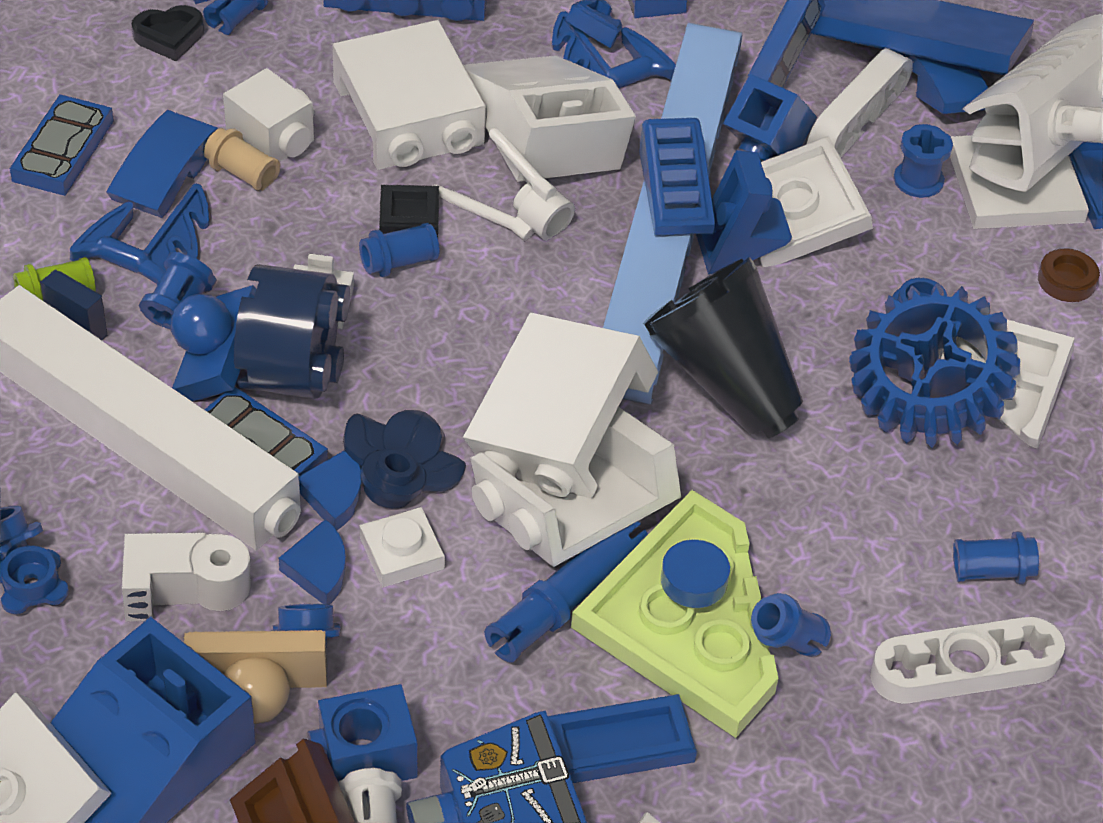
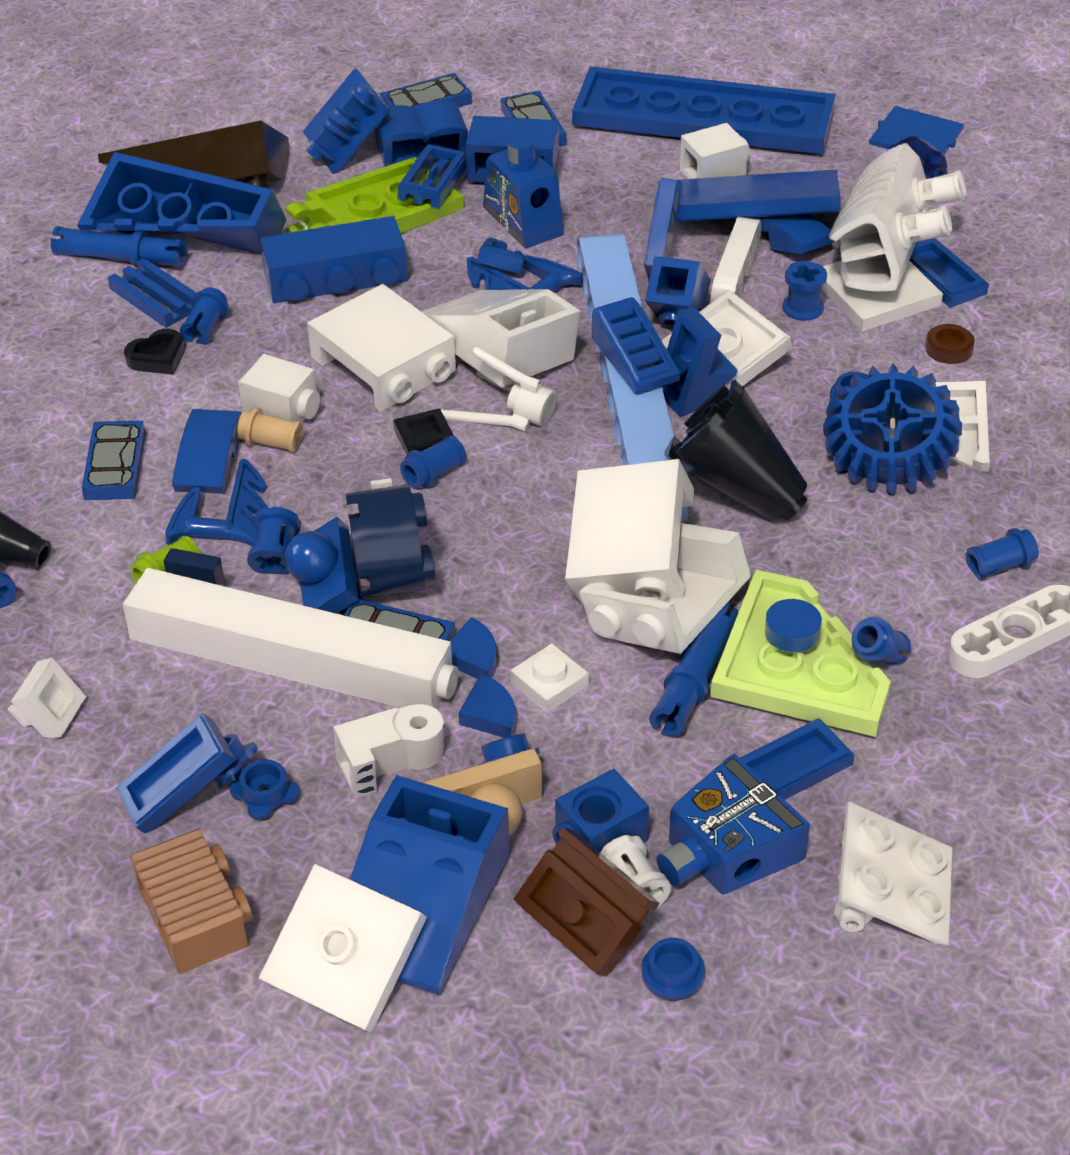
camera: 15 degrees left, 5 degrees down
(401, 457) = (514, 613): dark blue plate -> none

